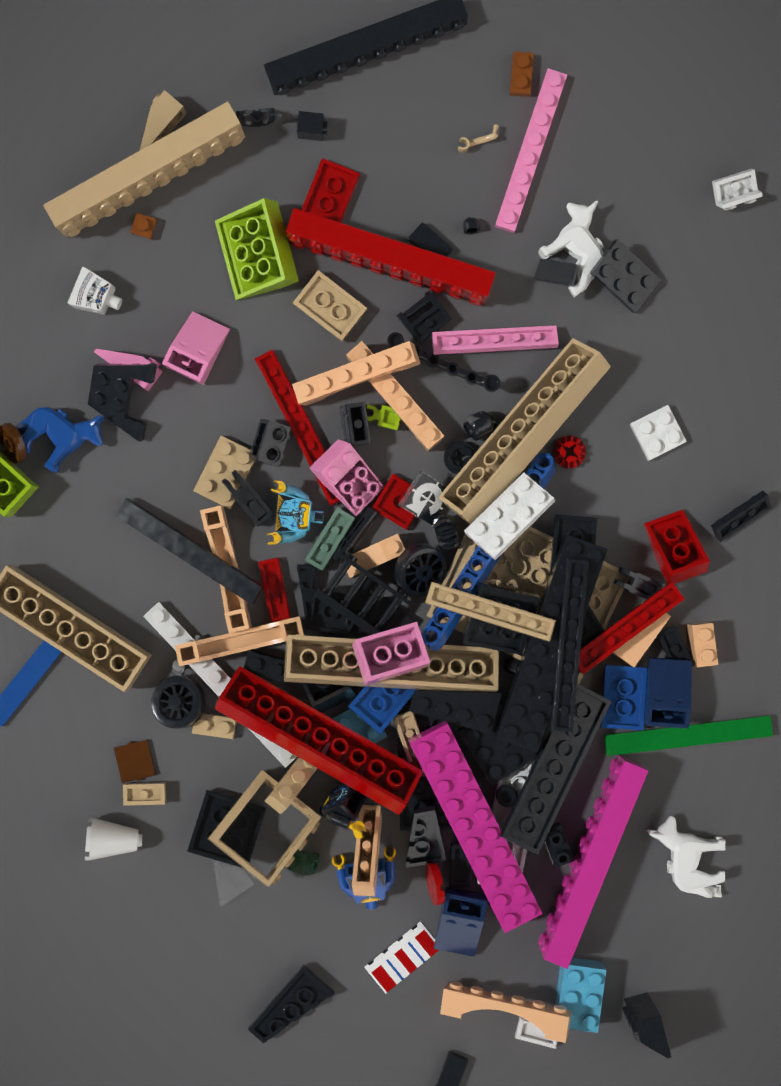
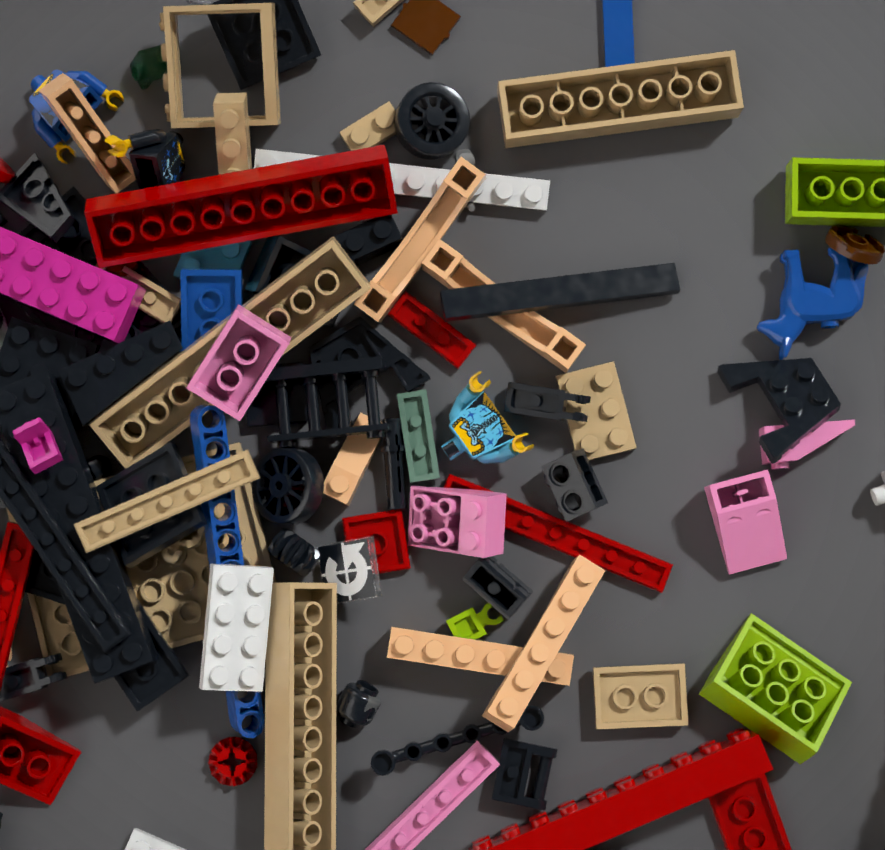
camera: 140 degrees right, 5 degrees down
(451, 452) = (365, 649): black gear -> none
(533, 699) = (38, 445): none -> dark pink bracket

